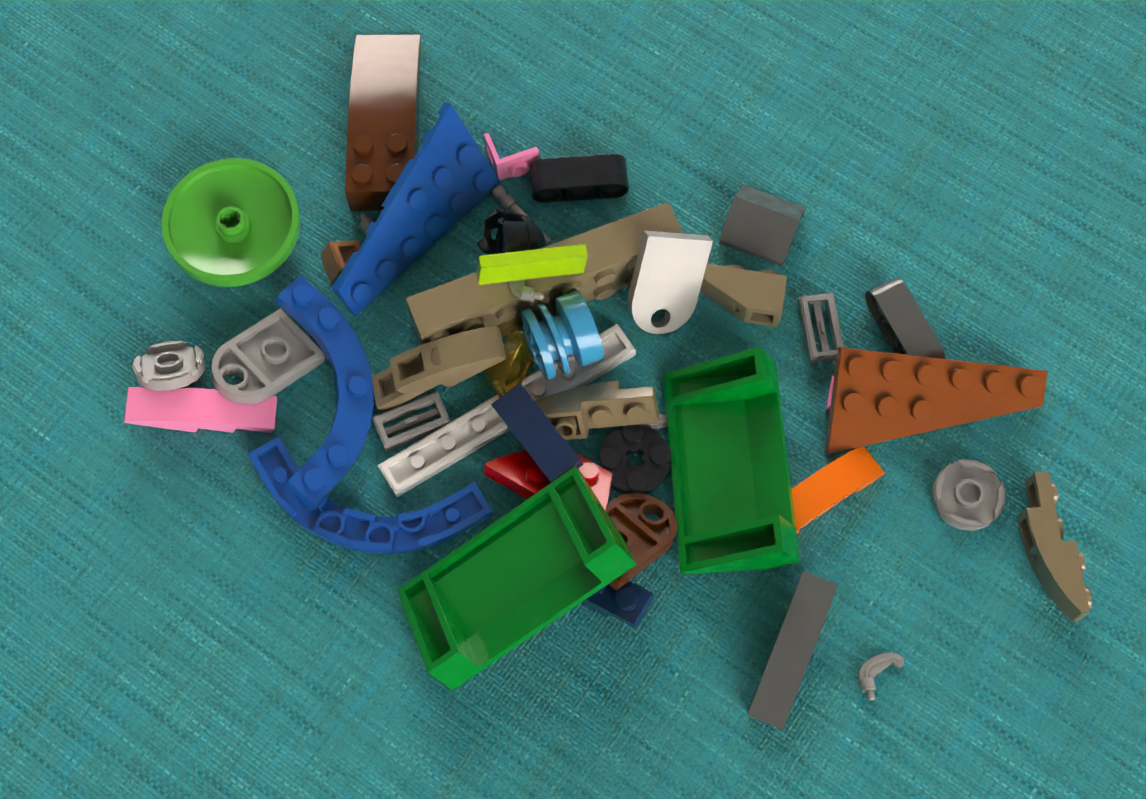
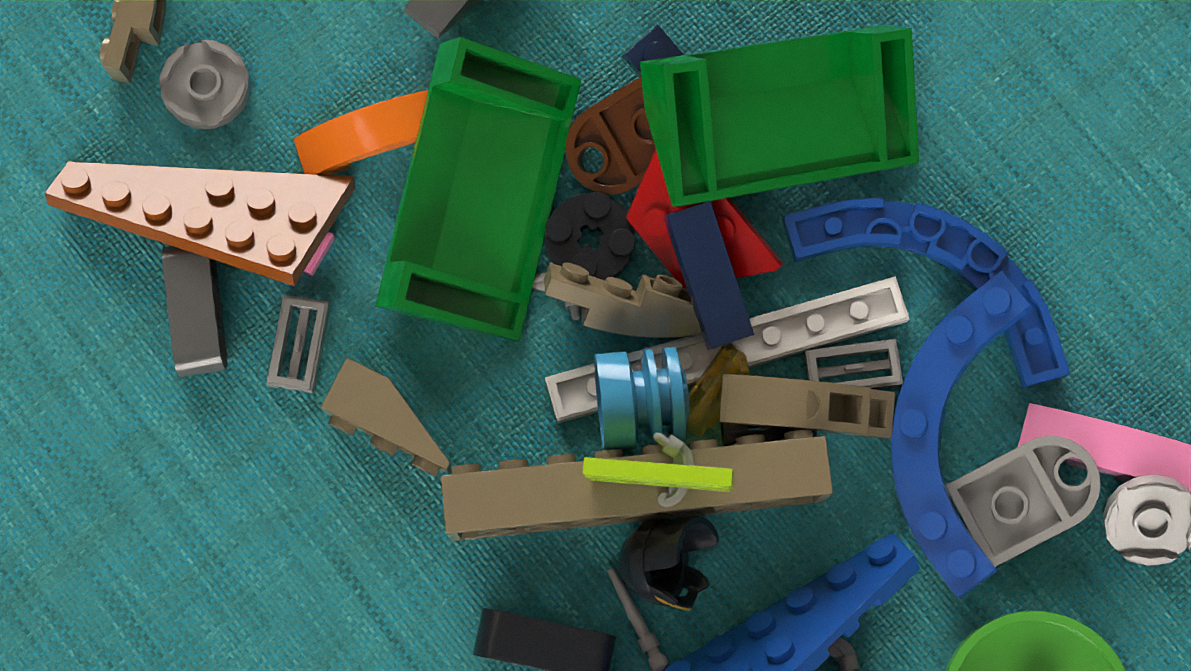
camera: 165 degrees left, 10 degrees up
(336, 256) = (892, 622): medium nougat slope -> none
(667, 278) = (478, 438): tile -> none
(761, 225) = (318, 511): dark grey slope -> none

